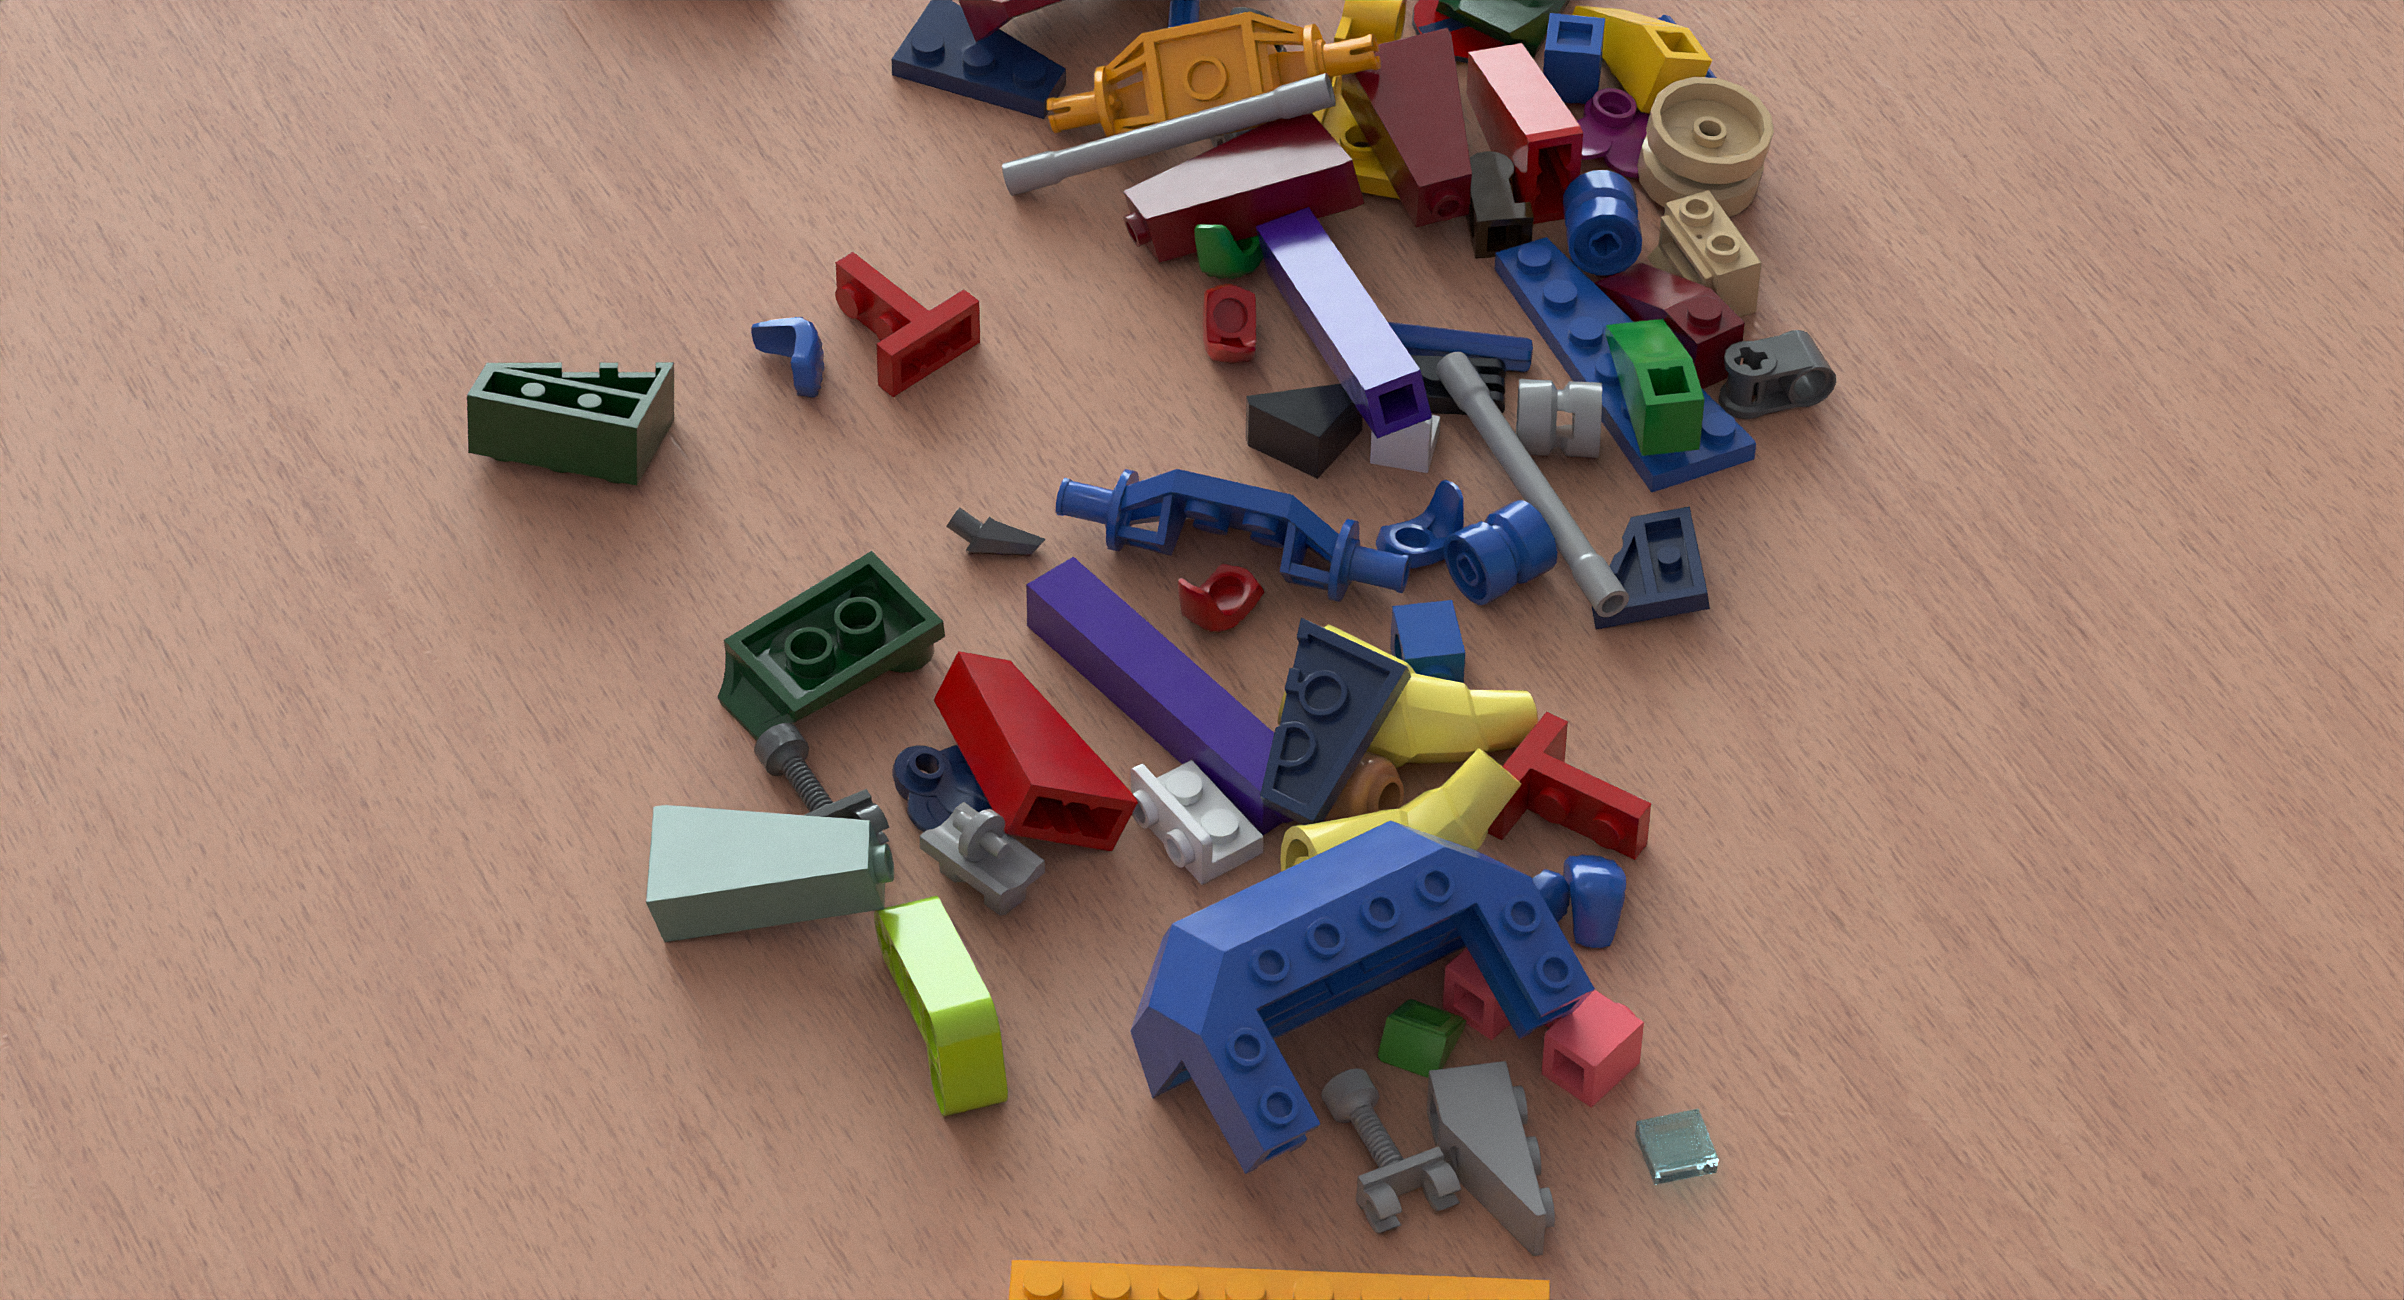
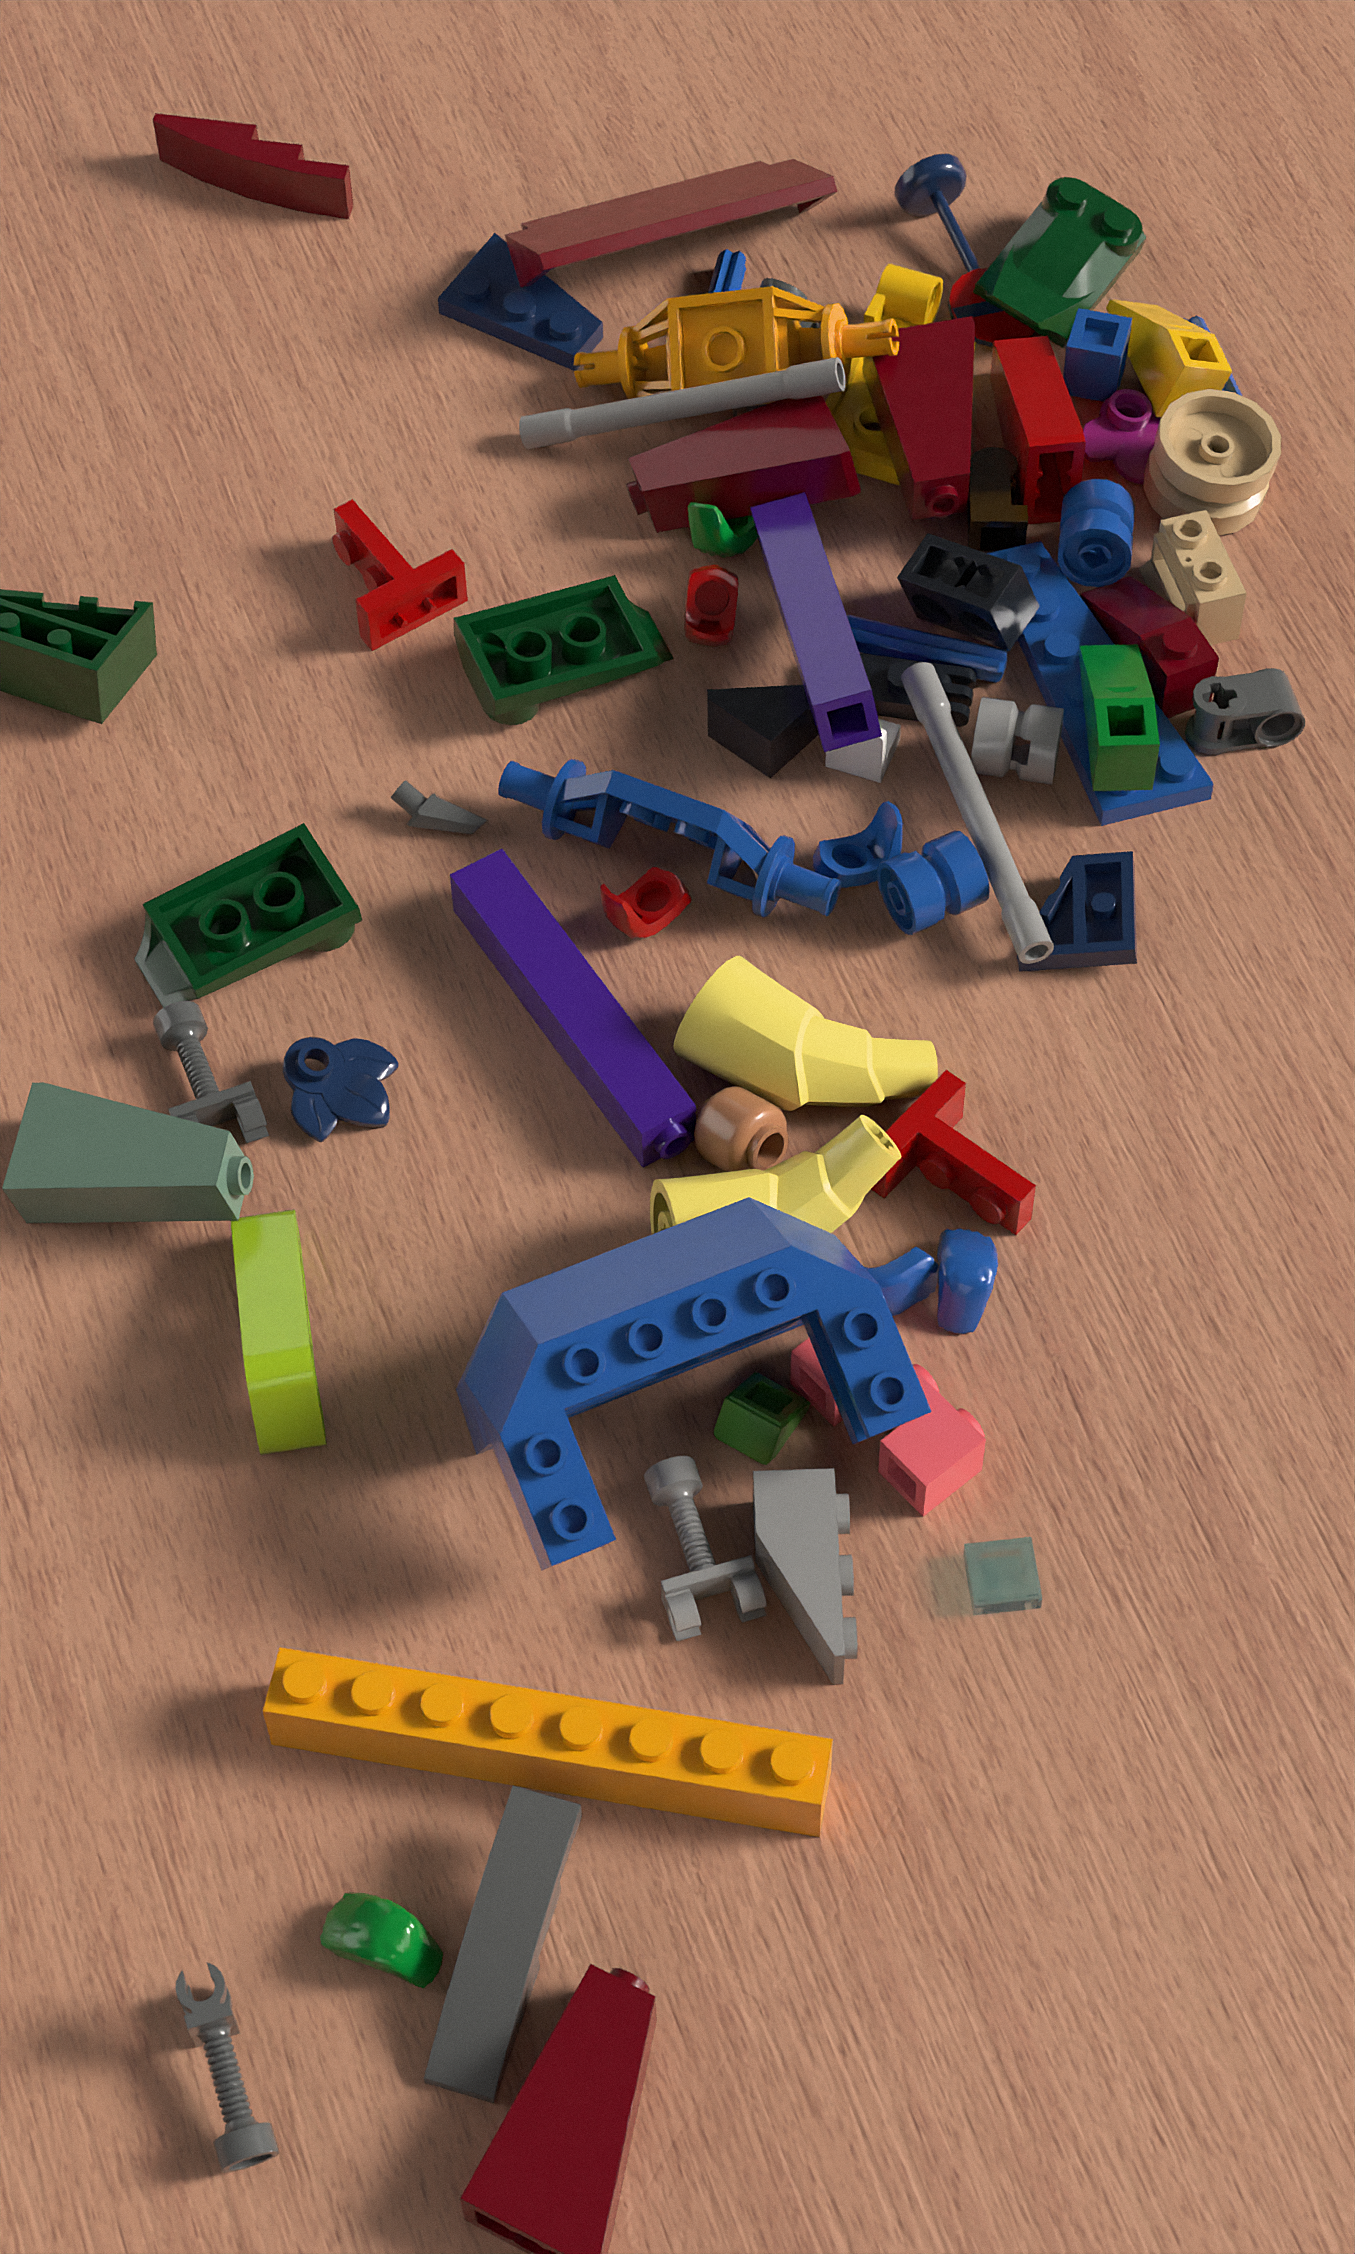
camera: 10 degrees right, 10 degrees up
(799, 341) = (291, 592): blue hair -> none
(979, 852) = (352, 1169): light grey hips -> none
(1030, 757) = (417, 1067): red slope -> none
(1080, 374) = (555, 647): none -> dark green slope
(1194, 821) = (575, 1147): white bracket -> none
(1328, 721) = (719, 1060): dark blue wing -> none
(1429, 639) = (843, 978): blue brick -> none
(1487, 285) = (968, 591): none -> black brick

